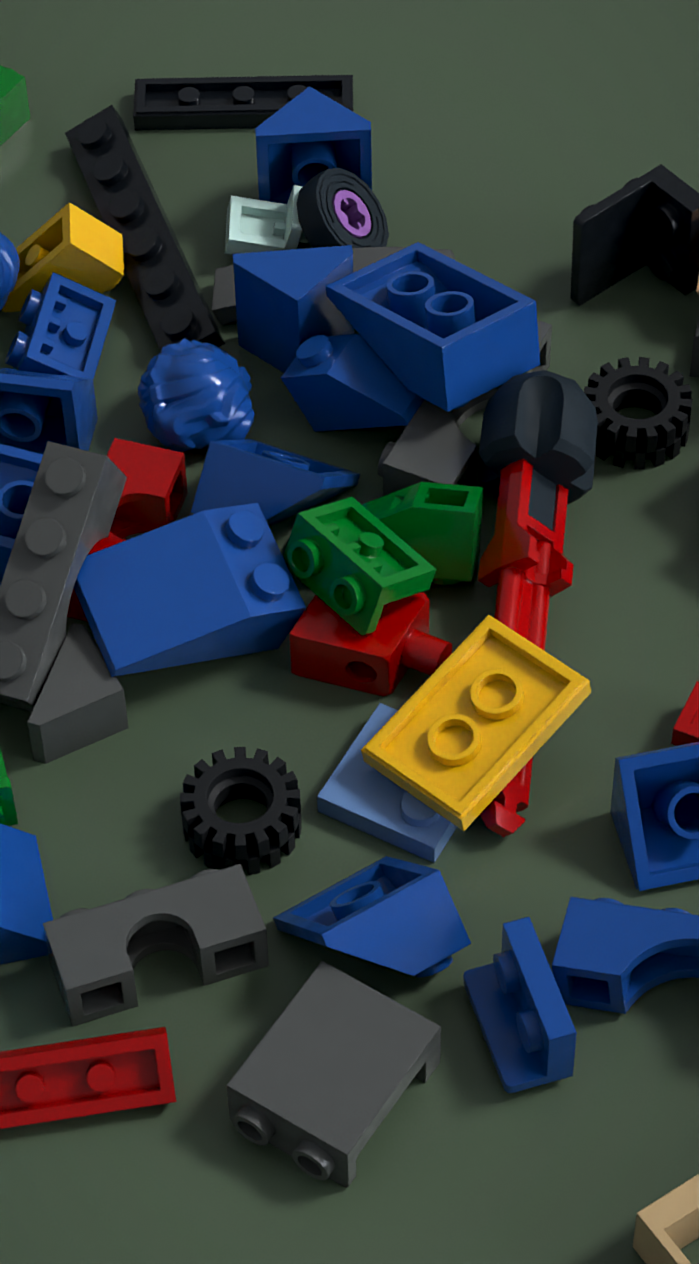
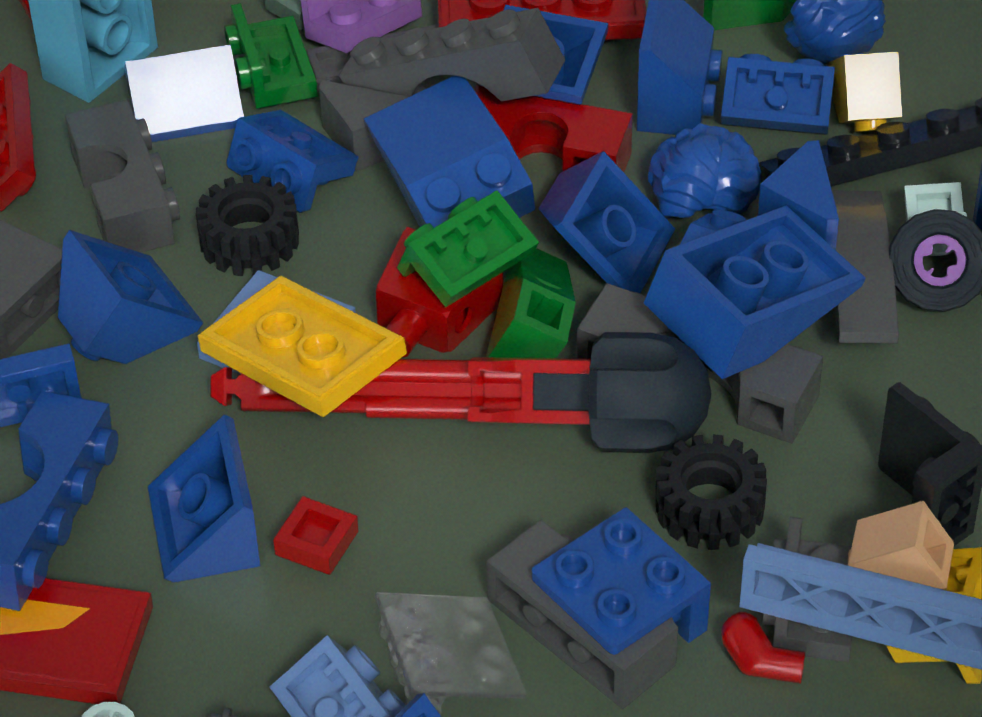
camera: 90 degrees right, 5 degrees down
(124, 776) = (288, 153): none -> blue bracket

